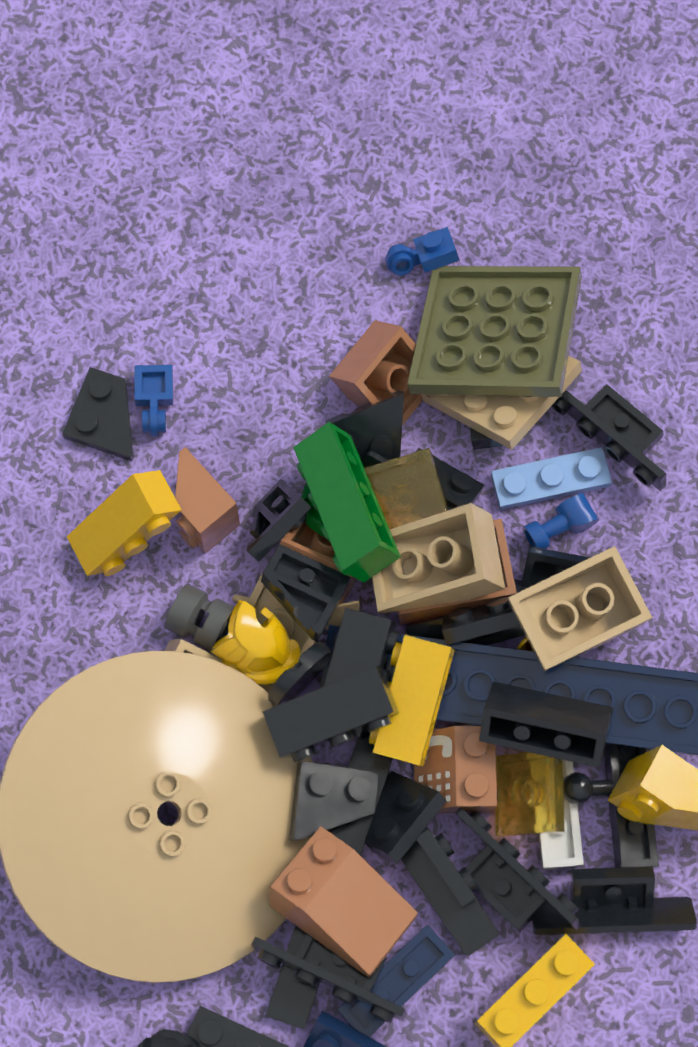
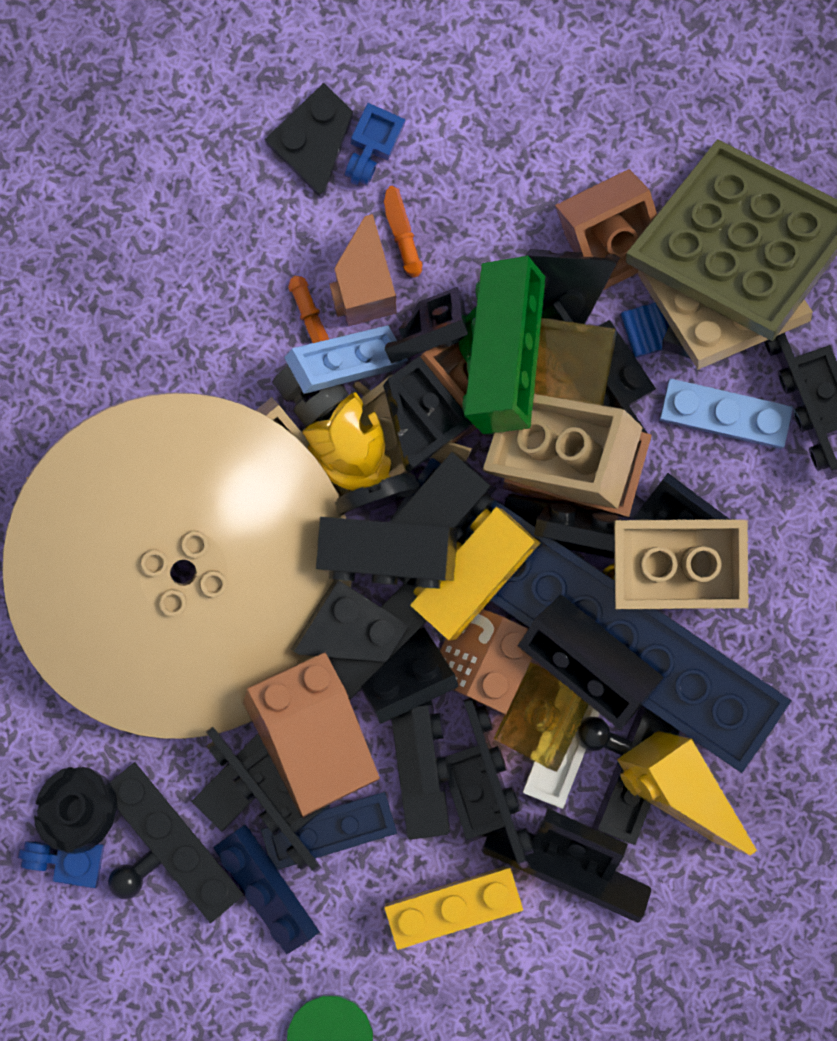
camera: 25 degrees right, 10 degrees up
(124, 523) = (279, 262): yellow brick -> none
(169, 559) = (308, 310): none -> orange piece
(211, 455) = (401, 230): none -> orange piece
(216, 578) = (342, 359): none -> light blue plate
(432, 251) = (723, 124): blue plate -> none
(451, 441) = (644, 329): none -> blue piece
(572, 515) = (728, 461): blue leg -> none

